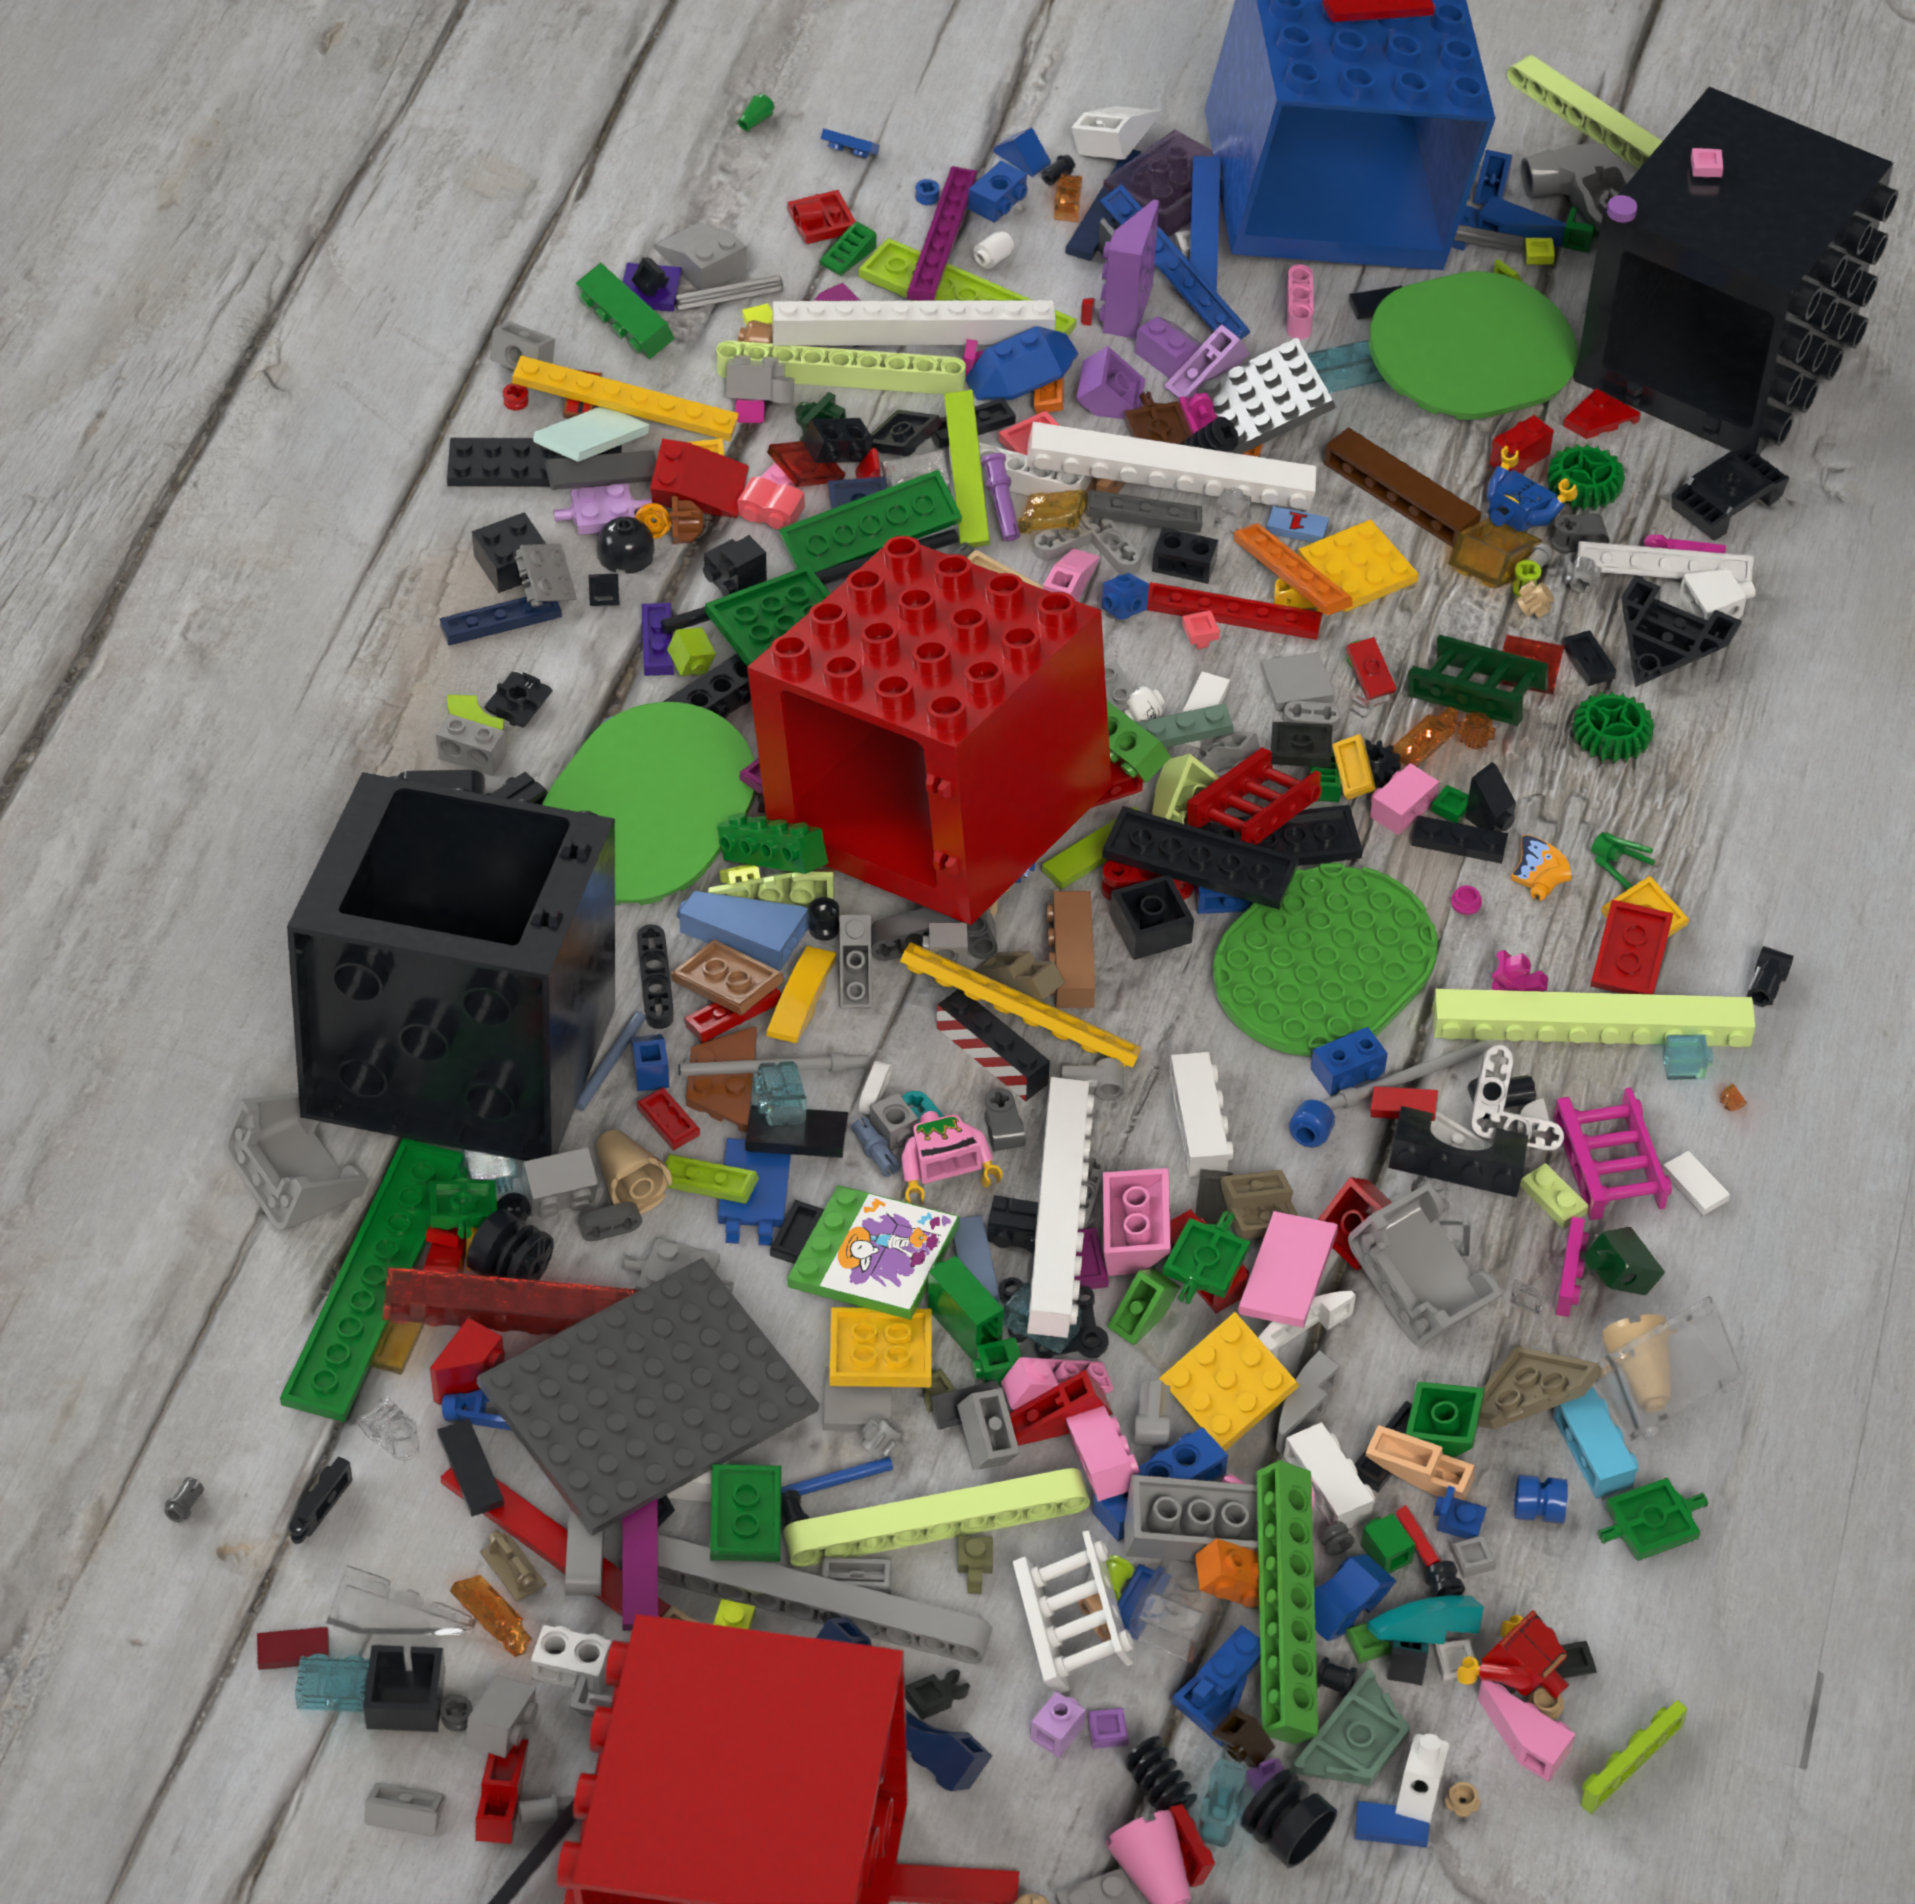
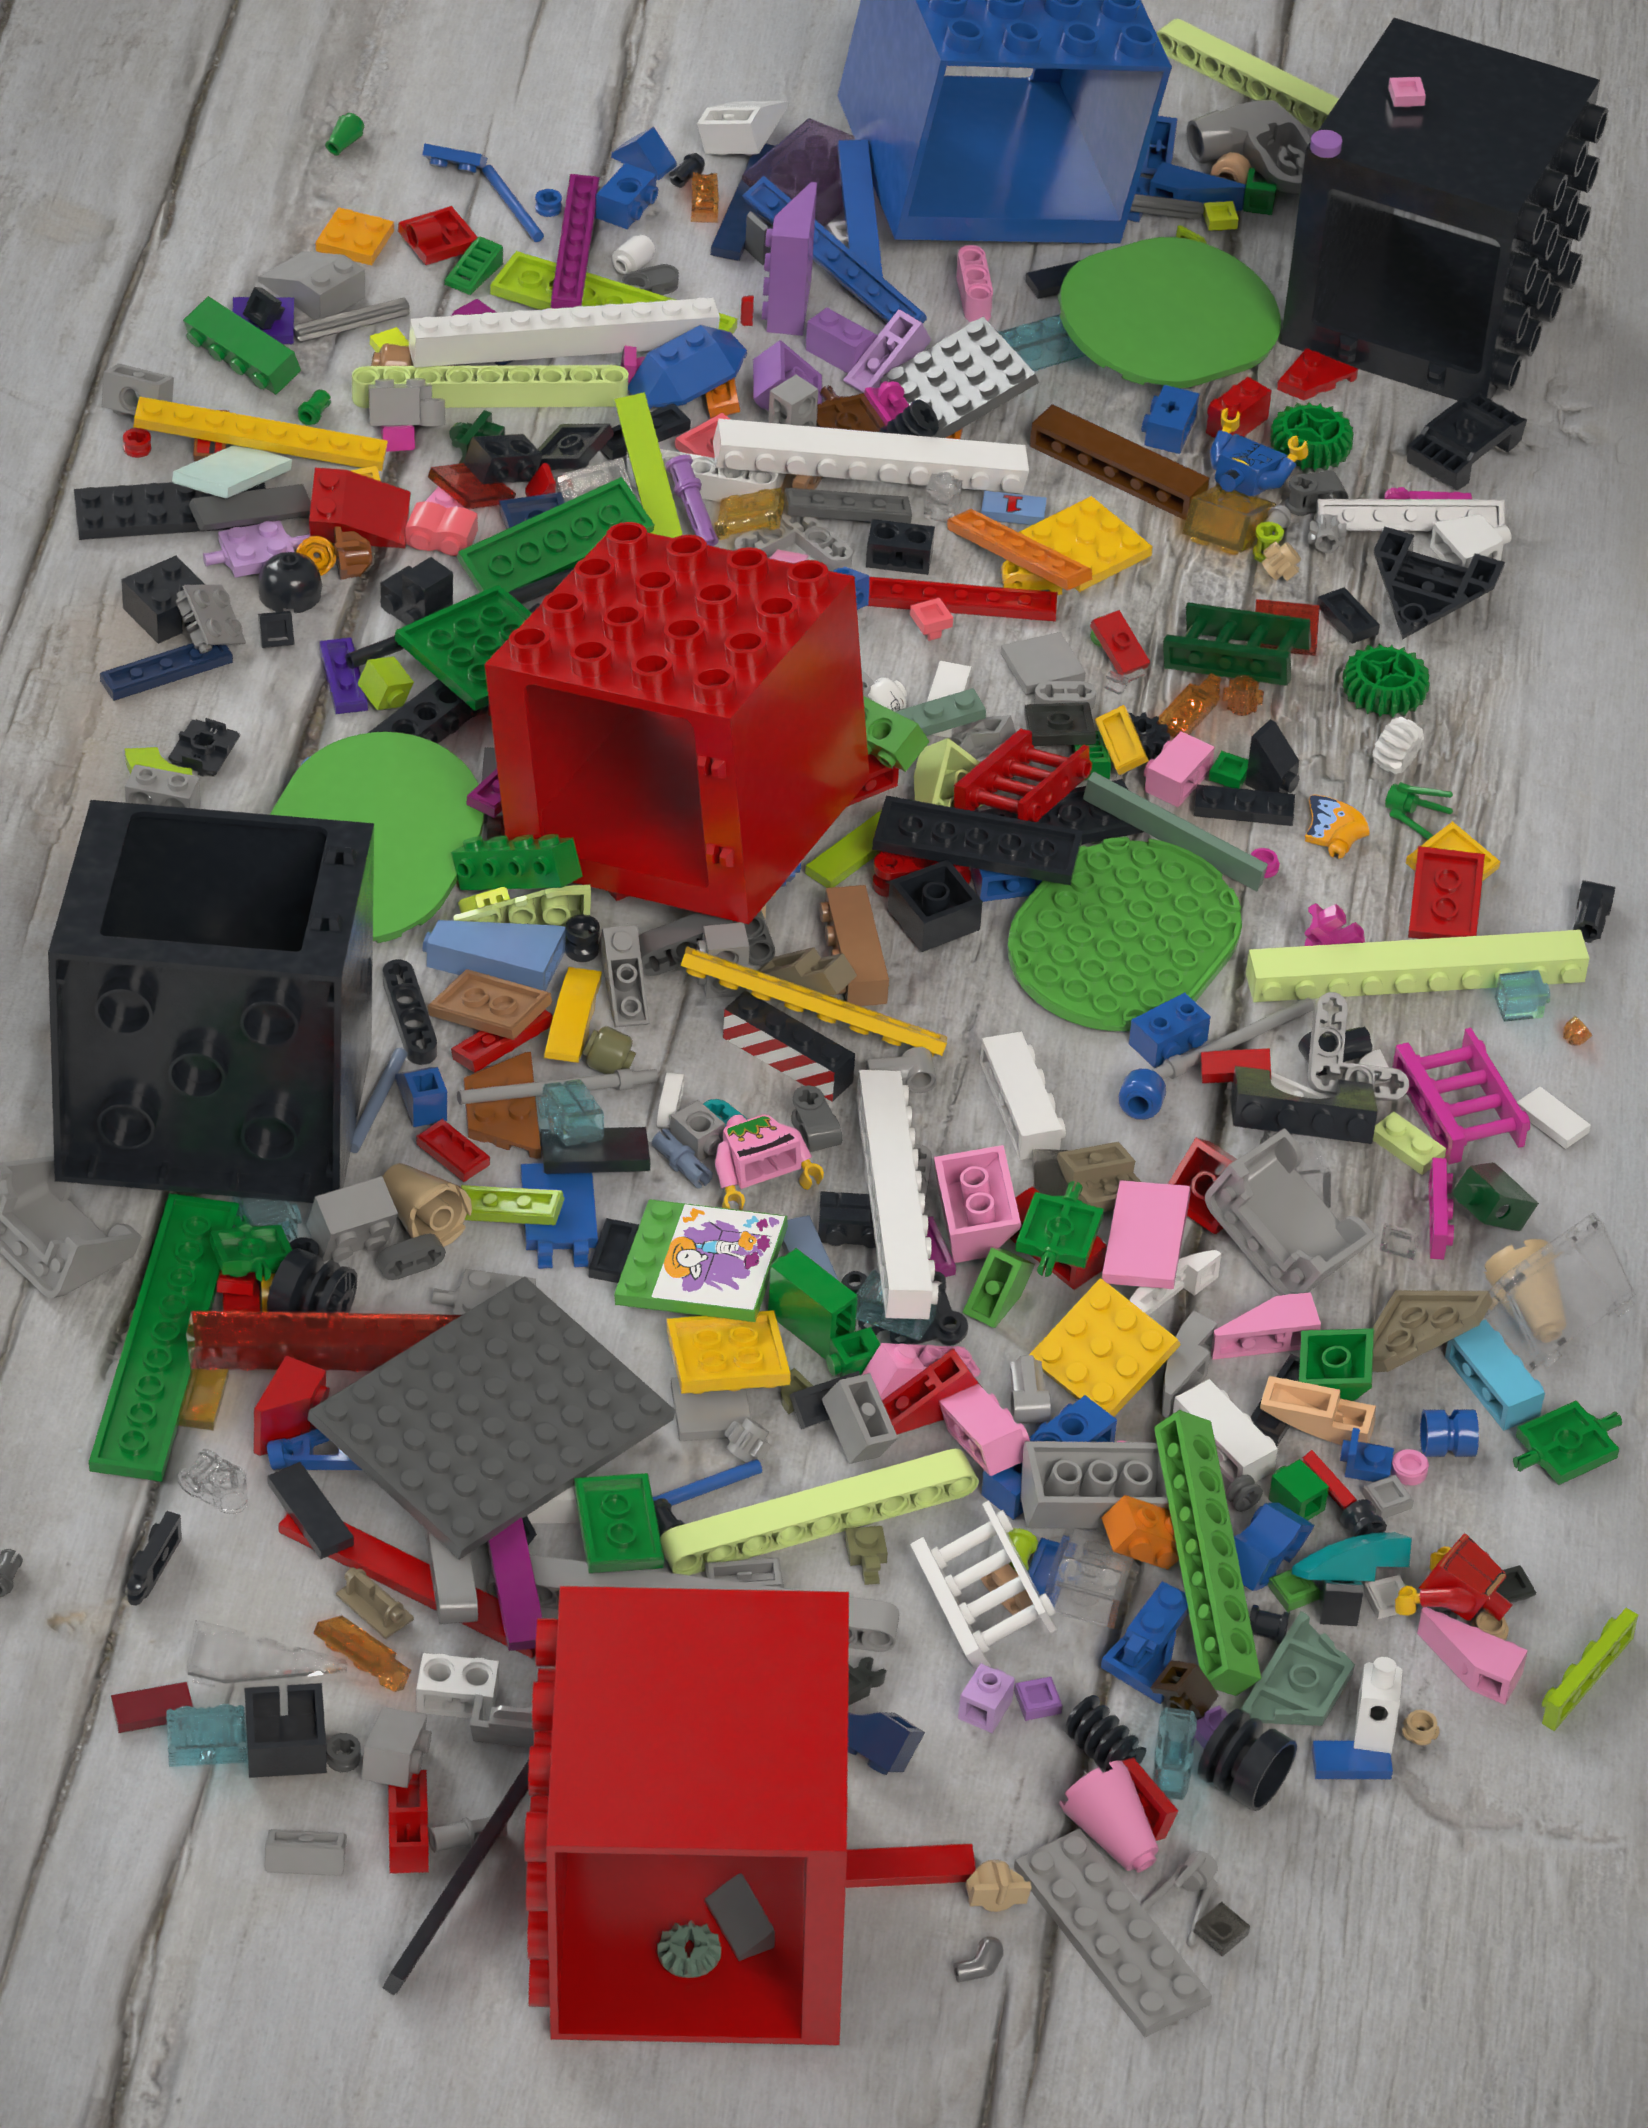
camera: 10 degrees left, 5 degrees down
(675, 379) = (310, 411): none -> green pin
(747, 211) = (355, 235): none -> light orange plate
(827, 1034) = (609, 1050): none -> olive head
(895, 190) = (513, 203): none -> blue bar
(1010, 274) = (657, 279): none -> dark grey piece
(1109, 411) = (794, 403): none -> light grey brick
(1387, 862) = (1174, 830): none -> sand green tile
(1388, 1372) = (1267, 1328): none -> bright pink slope
(1457, 449) = (1170, 419): none -> blue brick
(1499, 1527) = (1410, 1467): none -> bright pink tile
(1556, 206) = (1232, 167): none -> light nougat head
(1612, 794) = (1398, 745): none -> white gear

